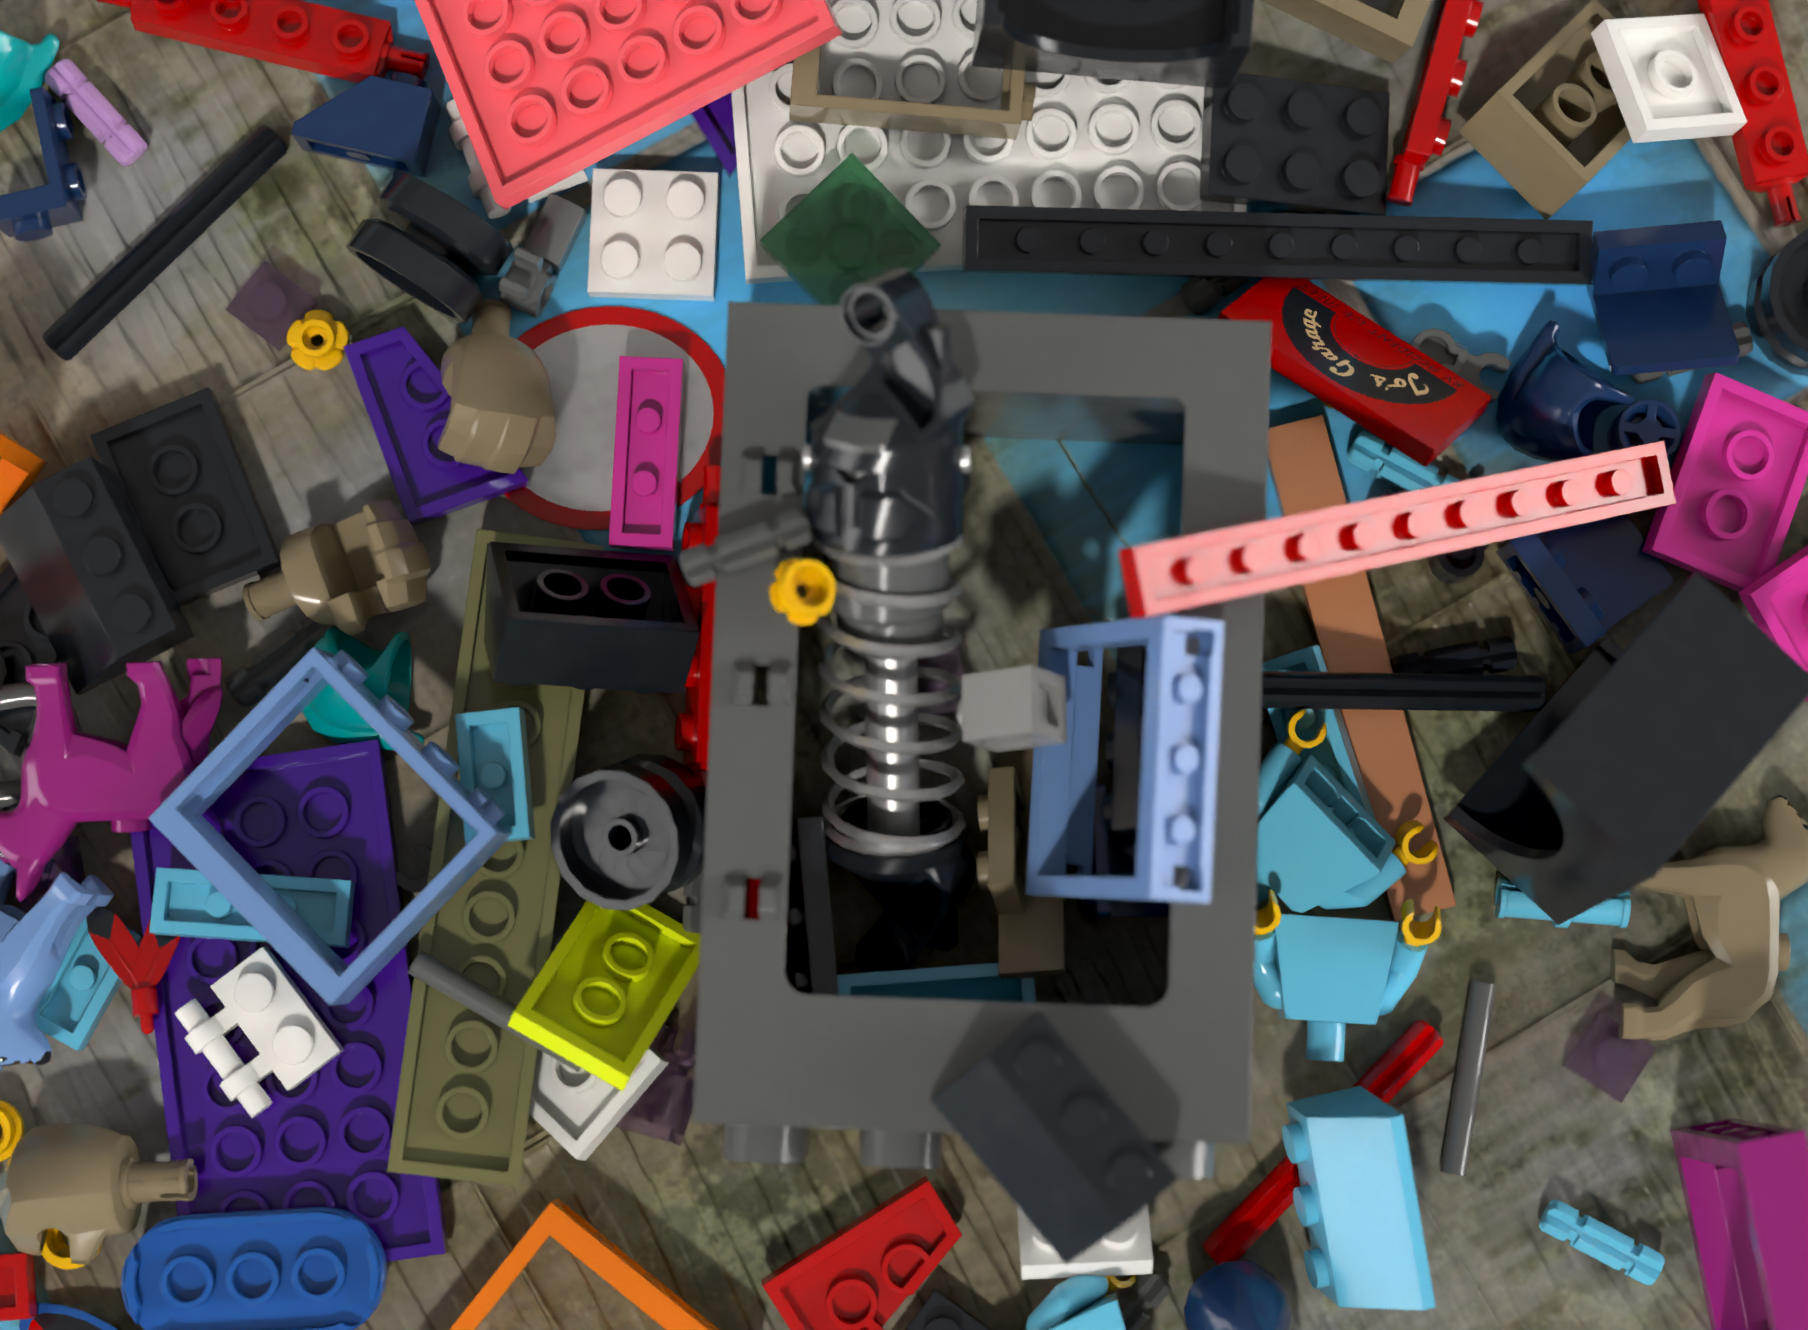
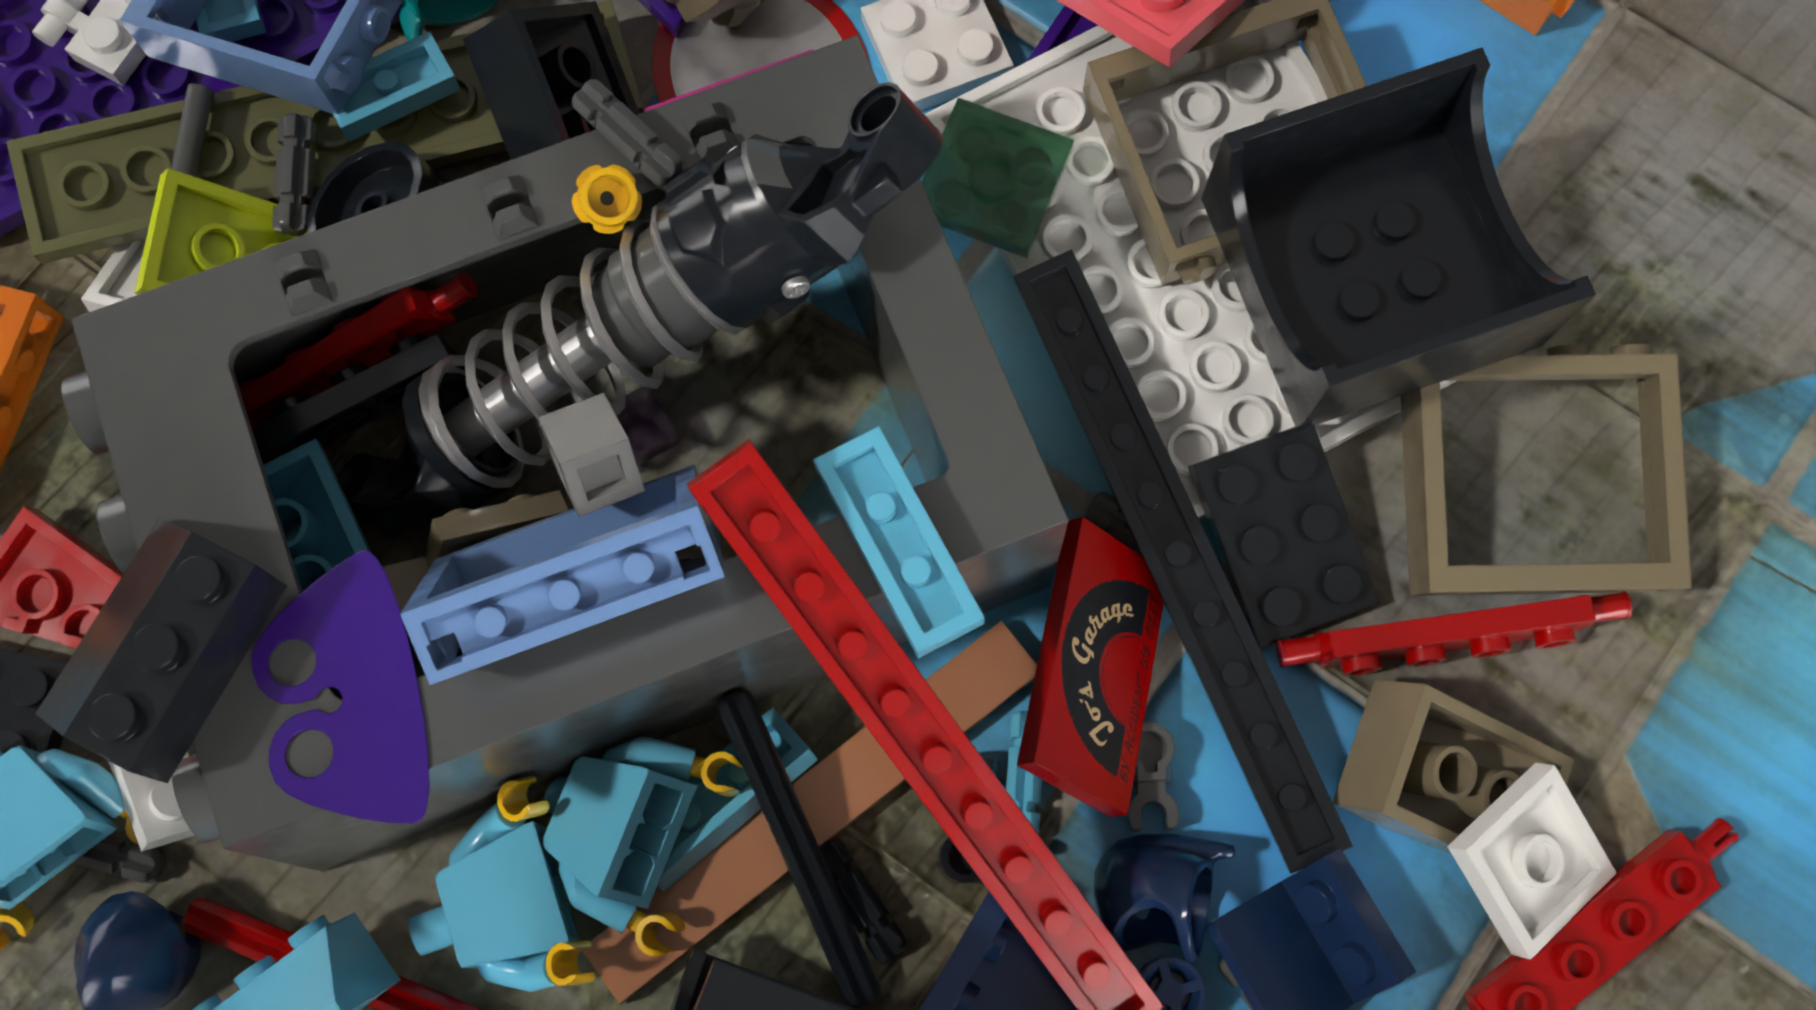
camera: 70 degrees right, 10 degrees down
(545, 903) = (294, 173): none -> dark grey axle
(1198, 973) = (380, 727): none -> dark purple piece
(1237, 469) = (899, 542): none -> medium azure plate

